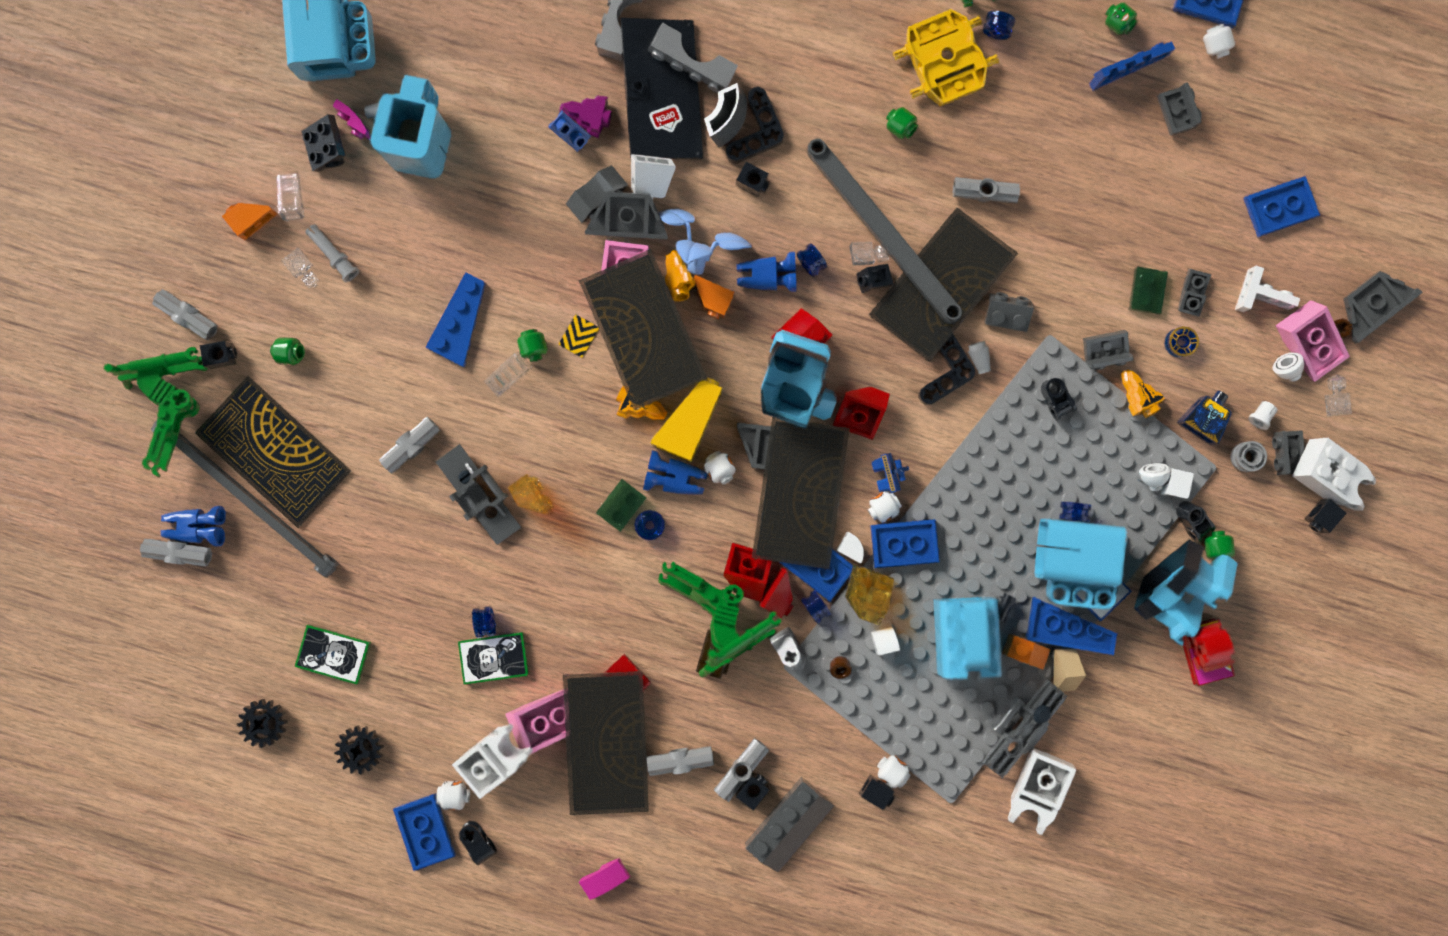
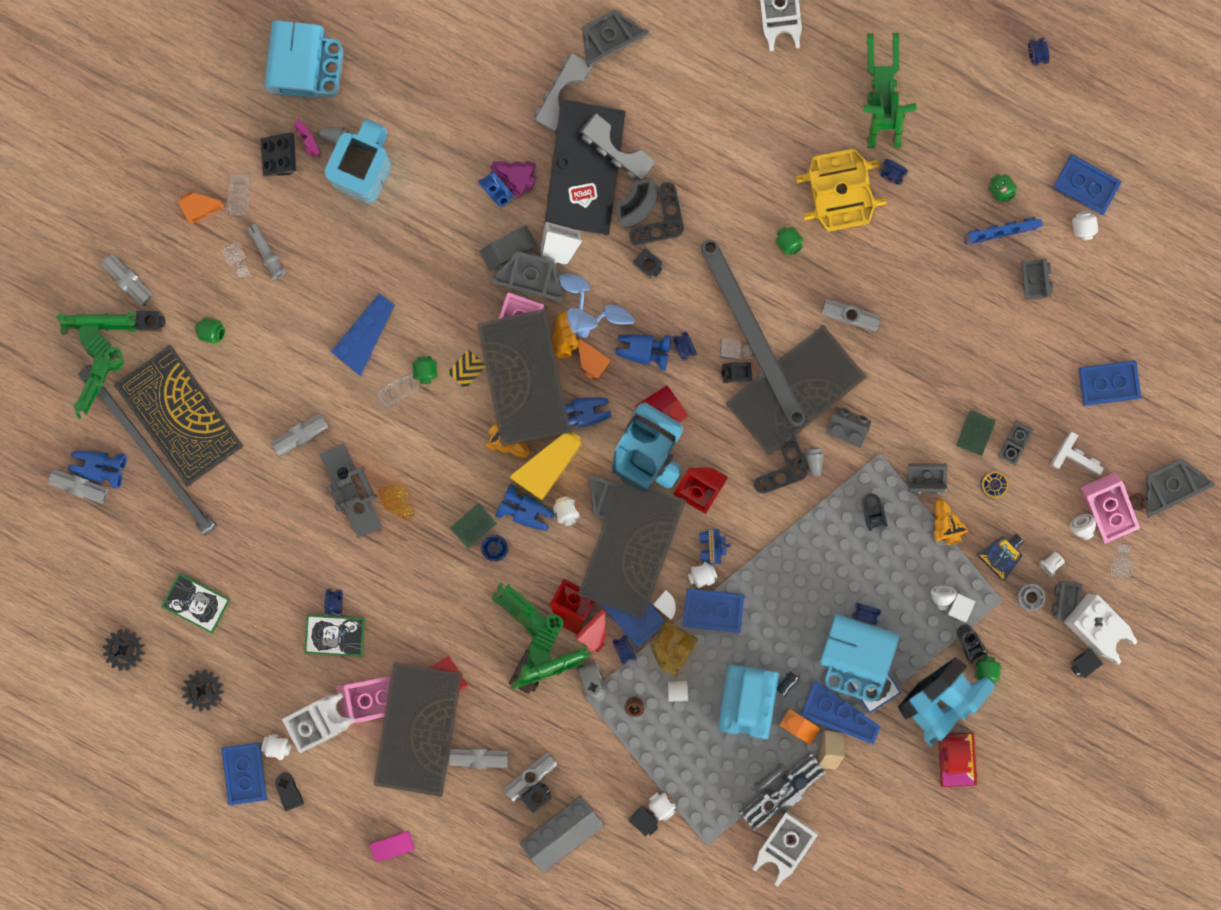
camera: 15 degrees right, 0 degrees up
(718, 356) = (585, 411): none -> blue piece

